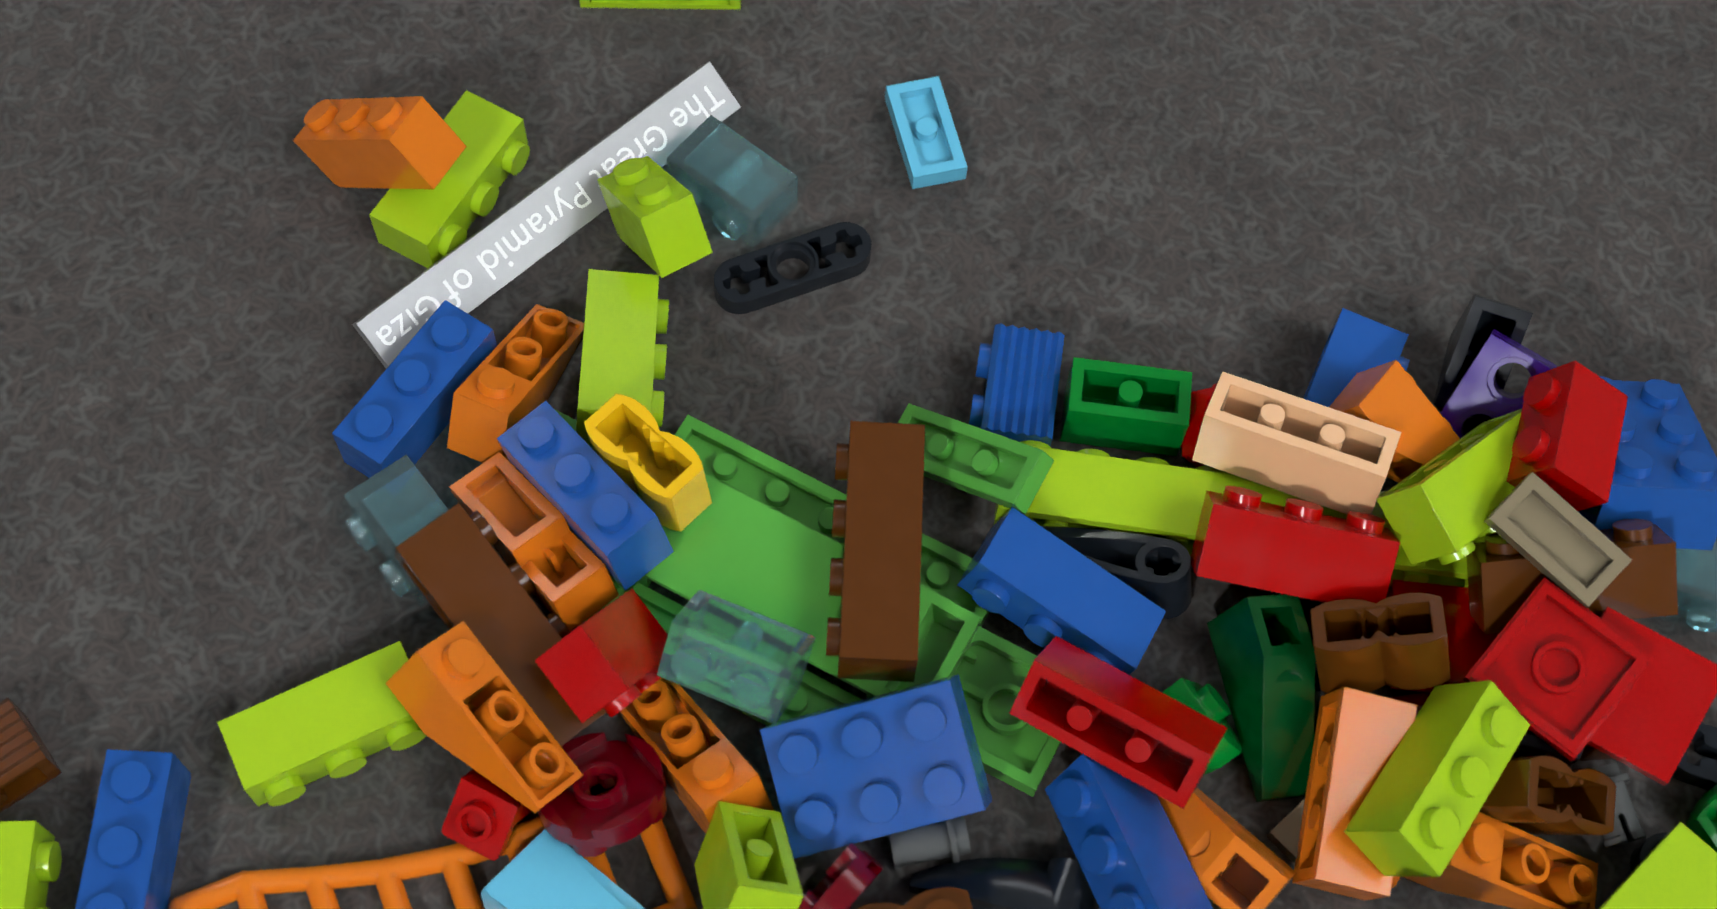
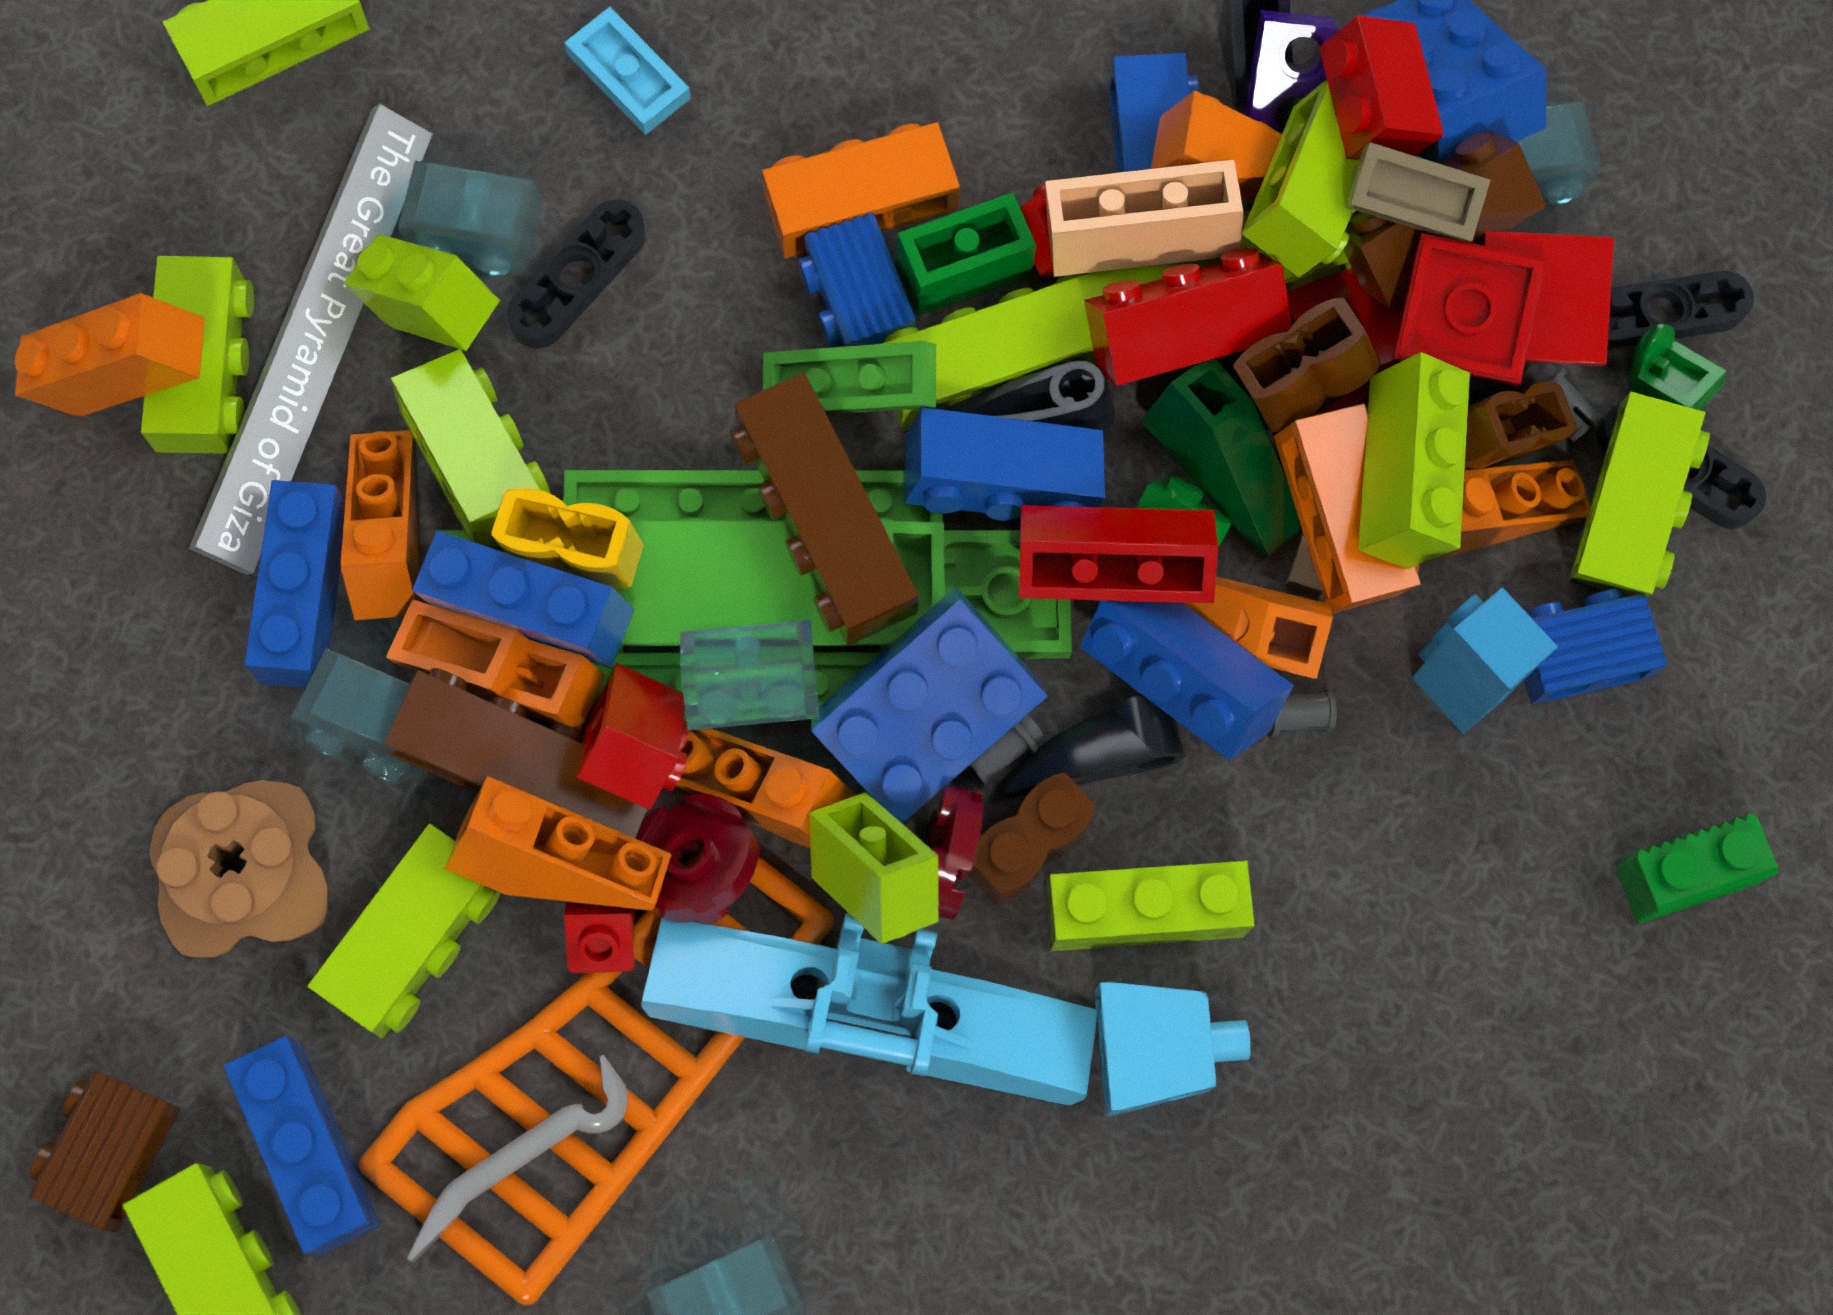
camera: 30 degrees left, 10 degrees up
(250, 630) = (272, 898): none -> medium nougat brick
(1095, 313) = (893, 176): none -> orange brick

